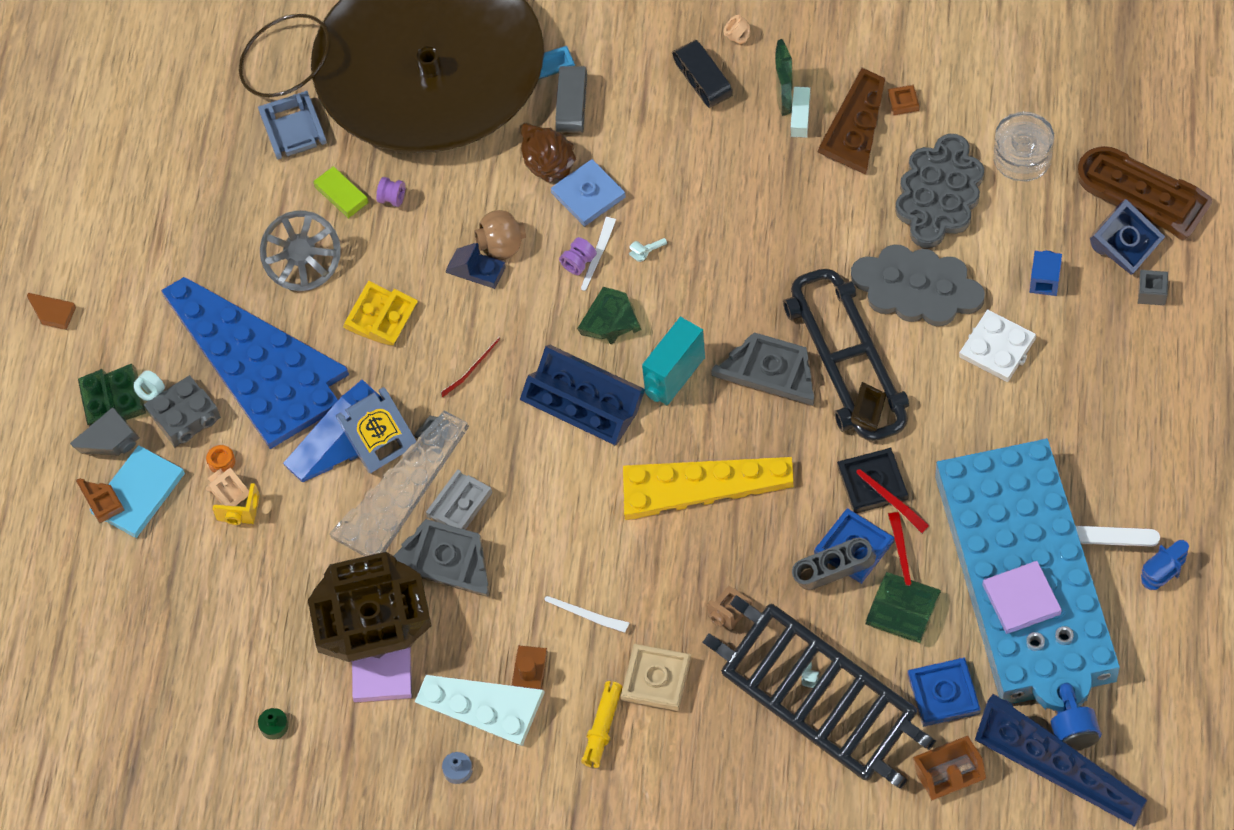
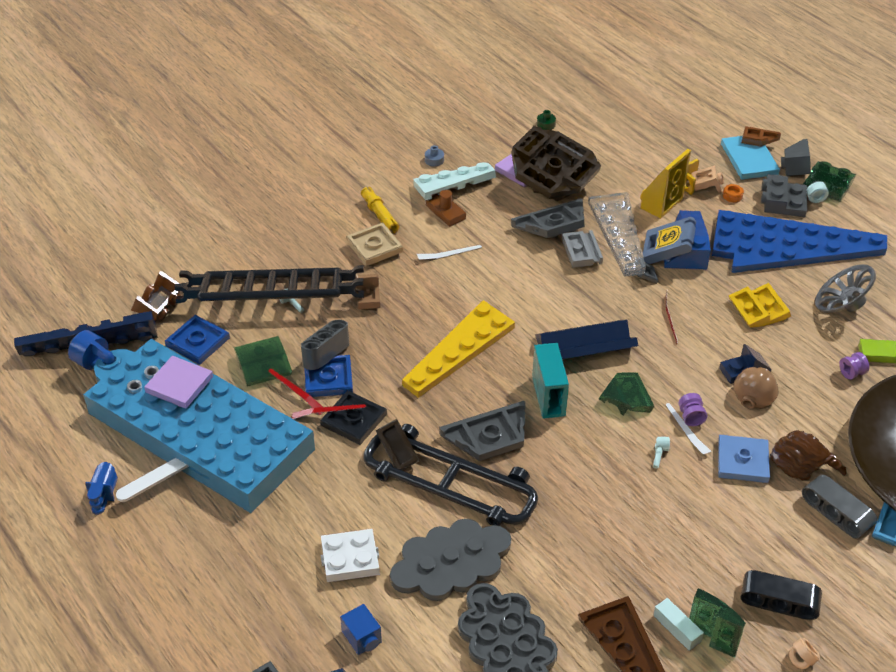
camera: 130 degrees right, 15 degrees down
(295, 489) = (667, 187): none -> yellow slope

